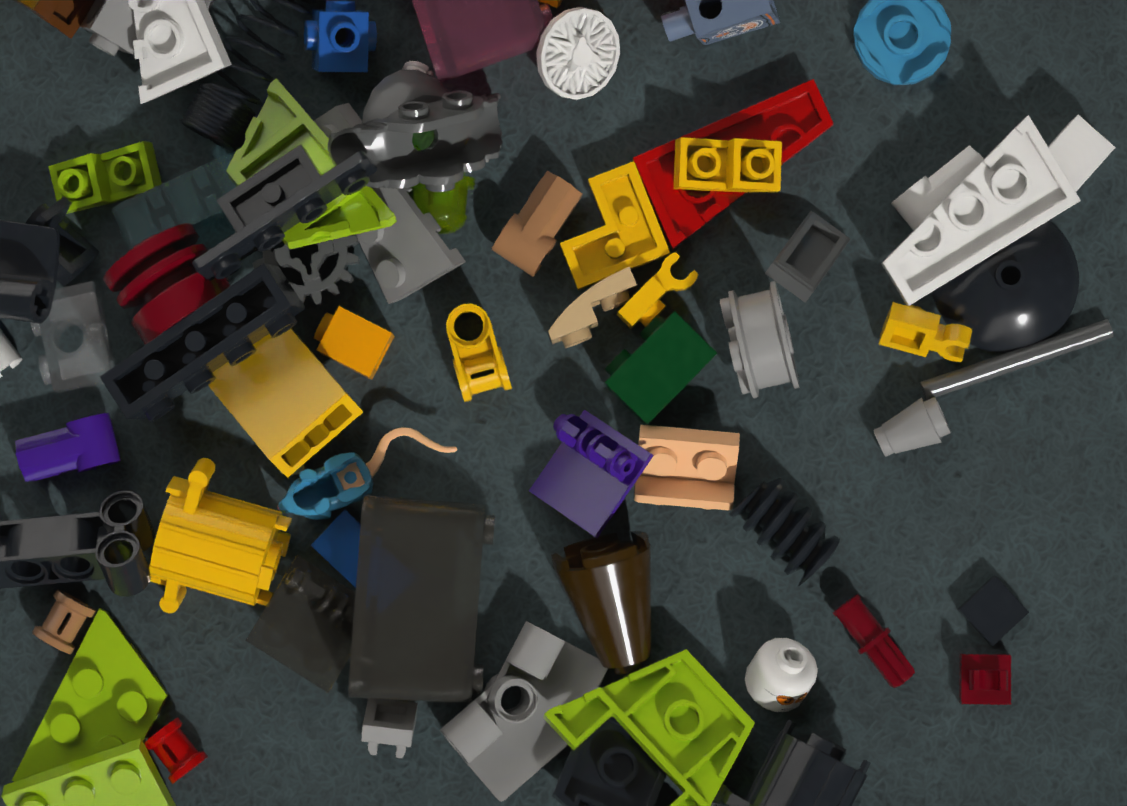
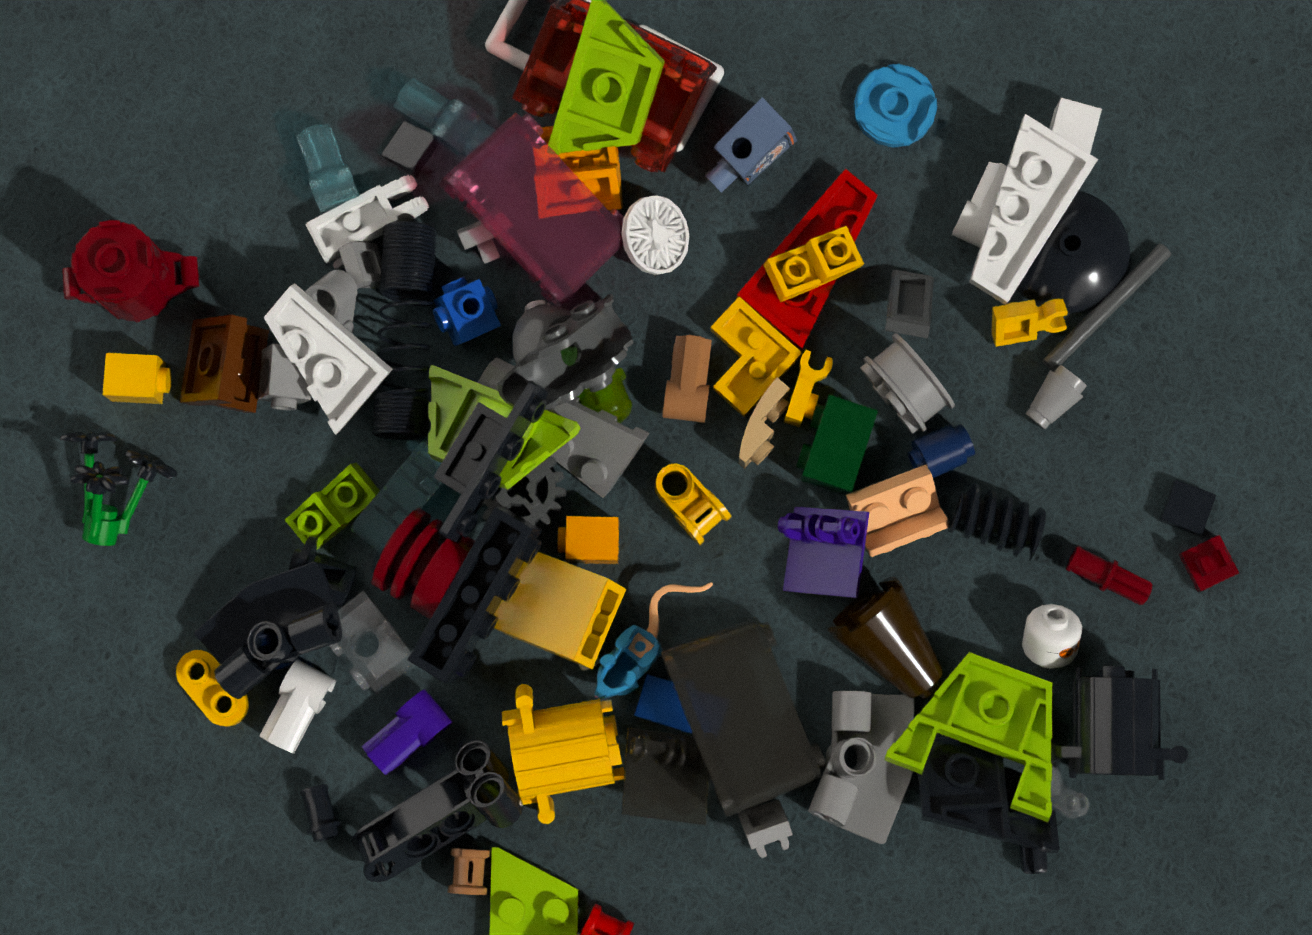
camera: 25 degrees left, 5 degrees down
(765, 426) = (942, 449): none -> dark blue brick

